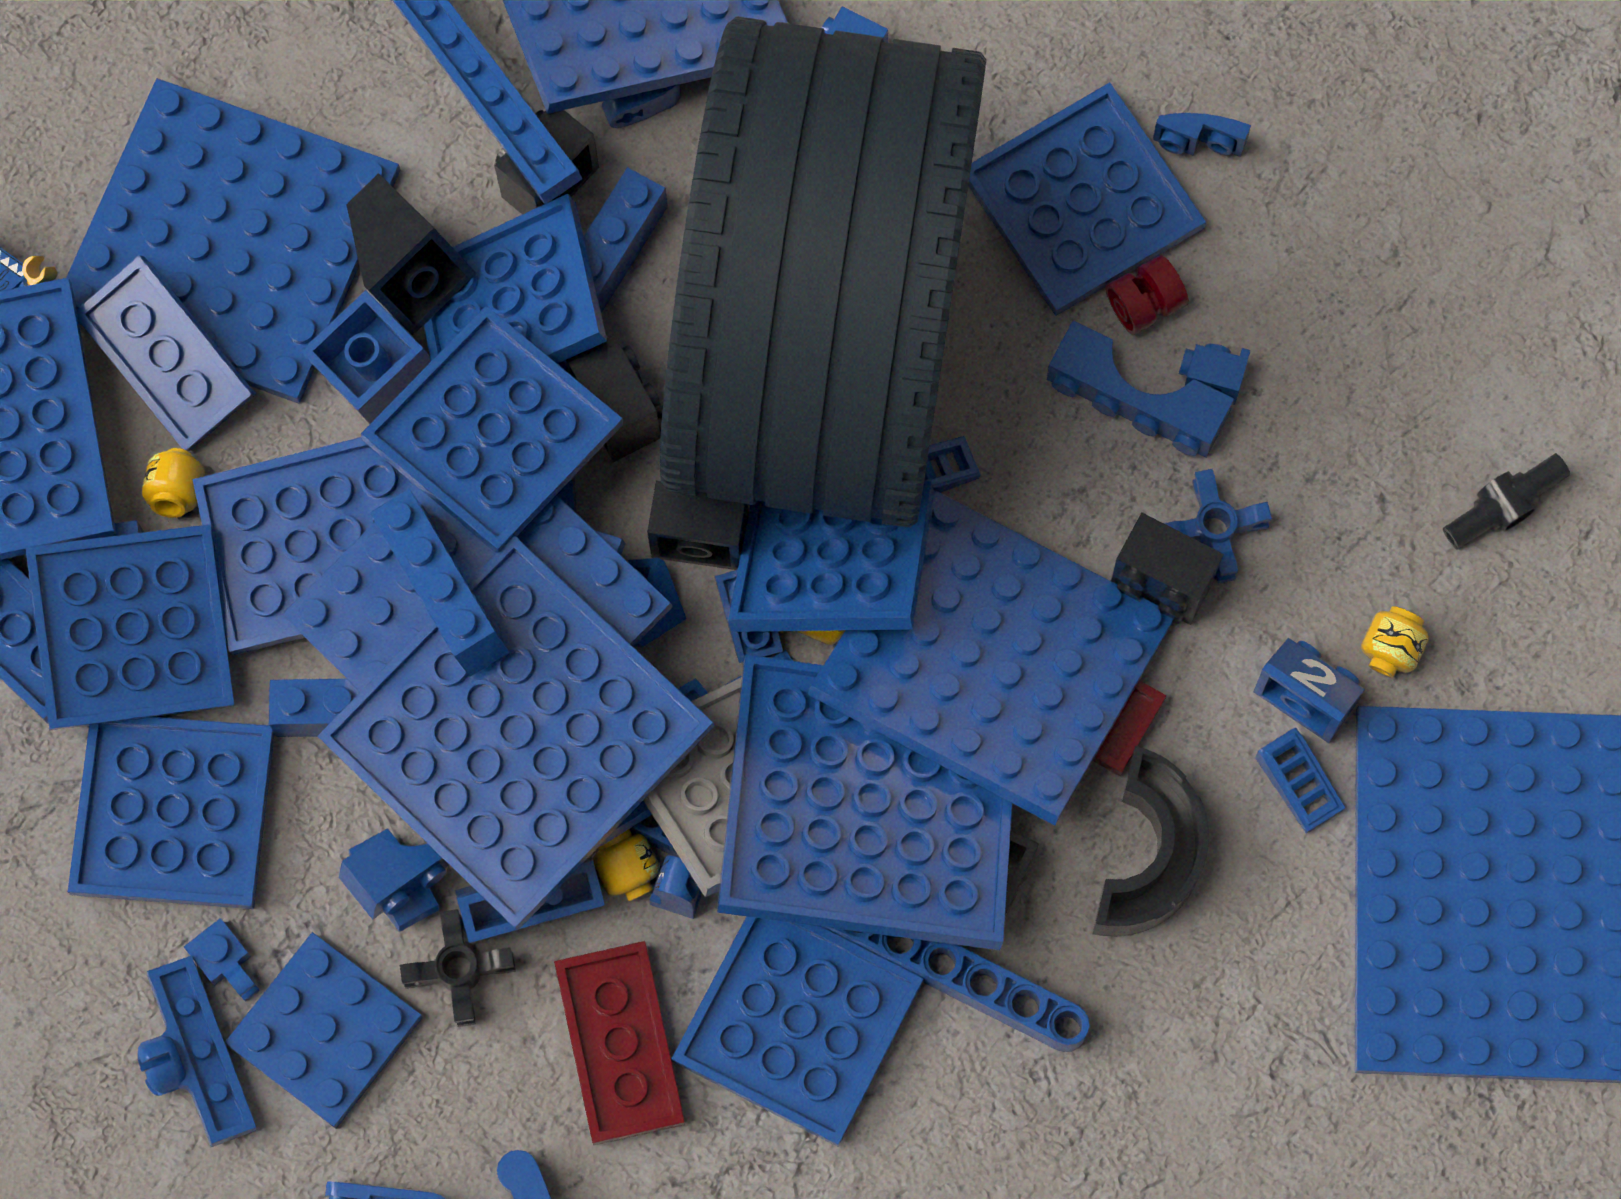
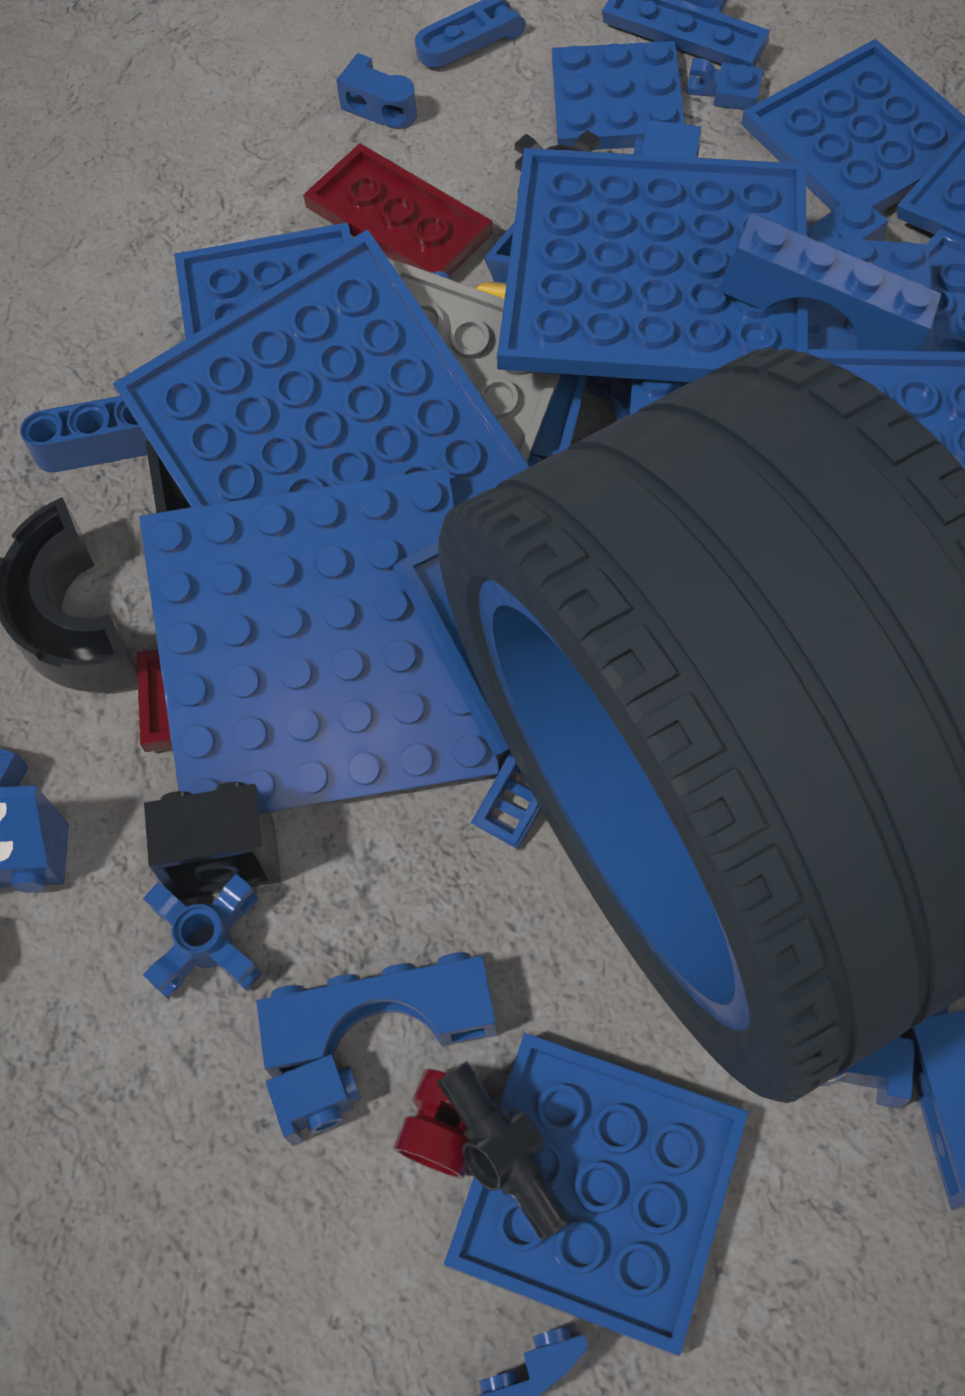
camera: 145 degrees right, 10 degrees down
(1126, 241) = (504, 1150): none -> black pin

